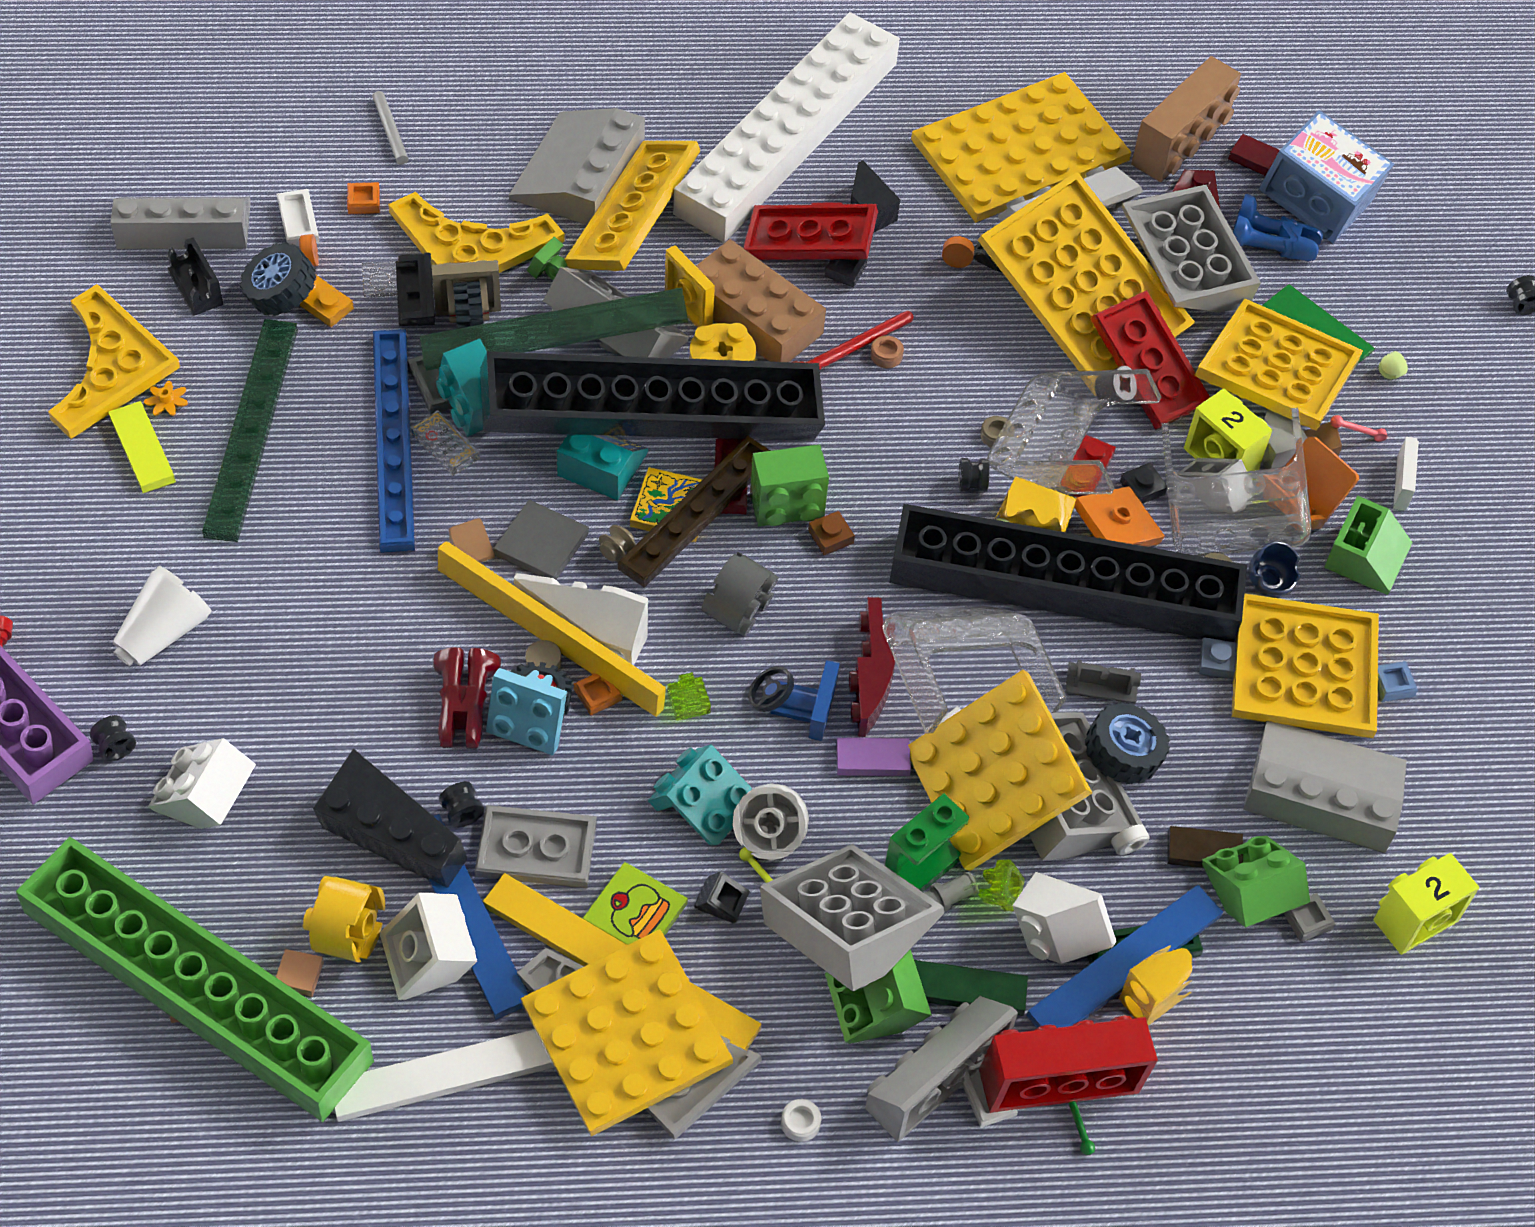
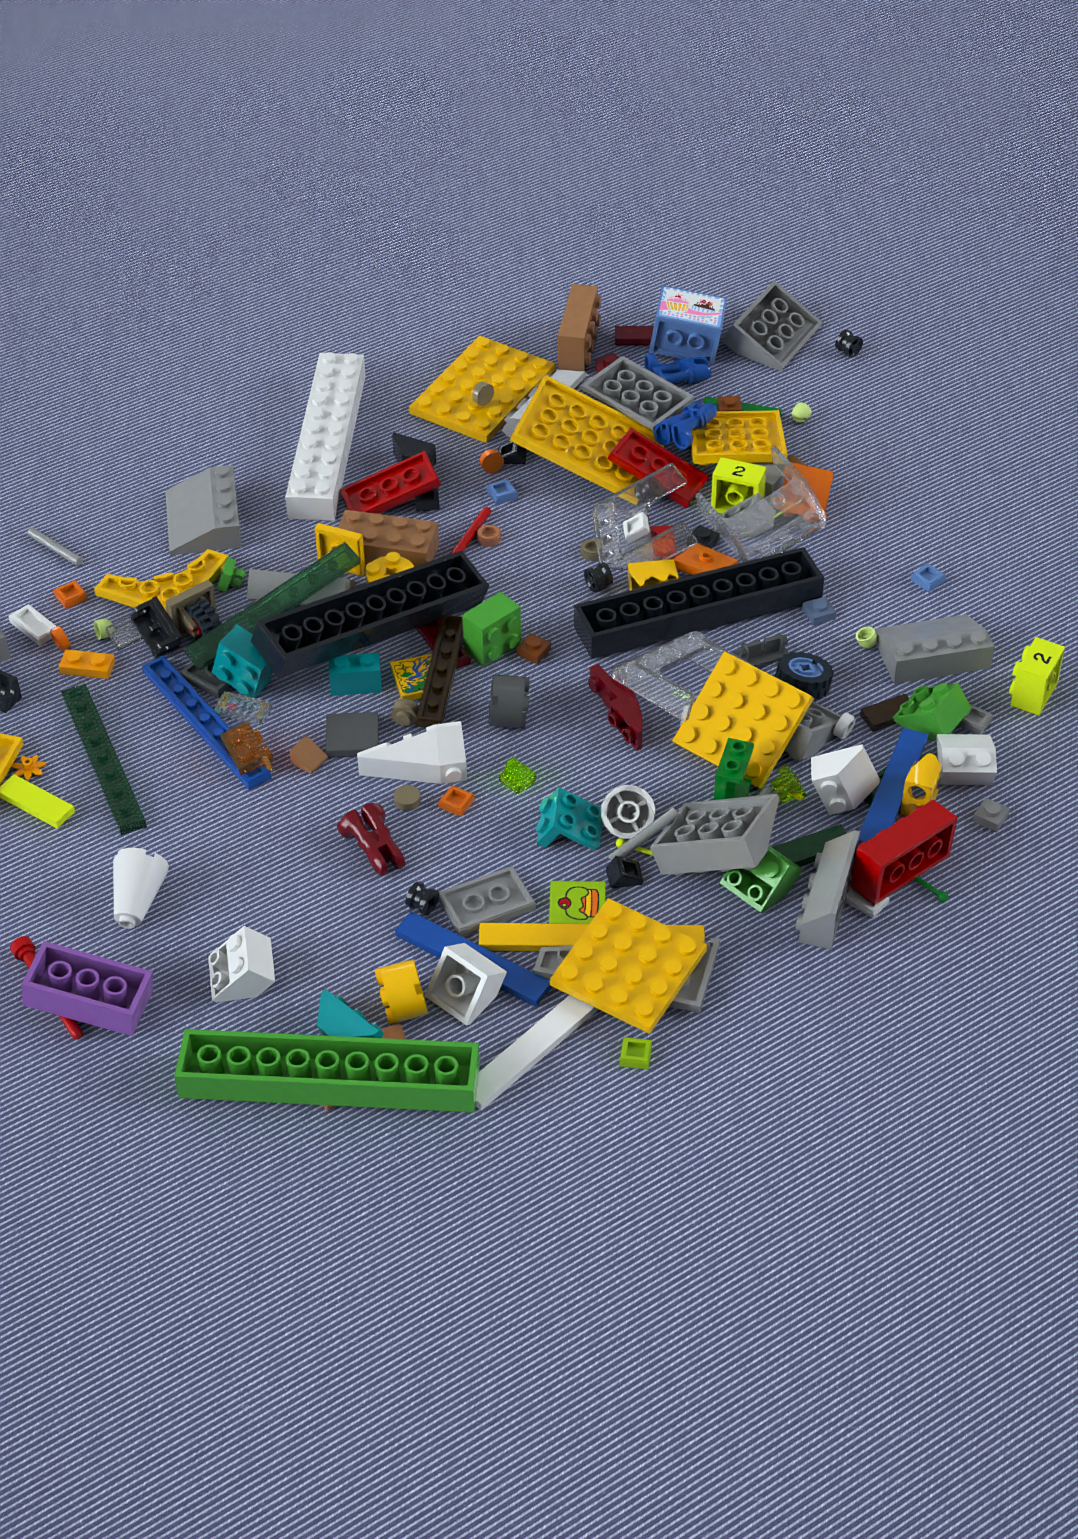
camera: 25 degrees left, 10 degrees down
(112, 738) = (162, 970): black wheel -> none
(253, 923) = (338, 1019): none -> teal slope
(278, 279) = (55, 661): black wheel -> none
(364, 255) = (100, 628): none -> yellowish green hinge
(385, 820) = (386, 927): black wedge -> none
(406, 500) = (246, 748): none -> clear orange bracket
(529, 705) = (425, 824): medium azure plate -> none
(551, 627) = (394, 775): yellow tile -> none
(562, 1150) = (635, 1053): none -> lime tile
(632, 205) = (263, 519): yellow plate -> none
(773, 862) = (645, 834): none -> light grey bar
(795, 700) = (584, 749): blue piece -> none
(801, 1120) = (767, 965): white tile -> none
(873, 757) = (656, 755): medium lavender tile -> none
(944, 299) = (502, 491): none -> medium blue tile
(1005, 156) = (483, 393): none -> dark tan tile
(1066, 429) = (636, 527): none -> white tile
(1207, 317) = (679, 427): none -> blue piece
(1232, 1065) = (991, 814): none -> light grey plate
(1248, 728) = (866, 637): none -> yellowish green hinge
(1250, 969) = (966, 759): none -> white slope
(1274, 569) = (818, 546): dark blue hair -> none
(1307, 666) = (876, 590): yellow plate -> none
(1308, 311) = (729, 403): none -> dark orange plate
(1369, 546) = (861, 511): bright green slope -> none
(1379, 434) = (820, 453): coral hinge -> none
(1406, 473) = (852, 465): white tile -> none
(1440, 228) = (772, 328): none -> light grey slope

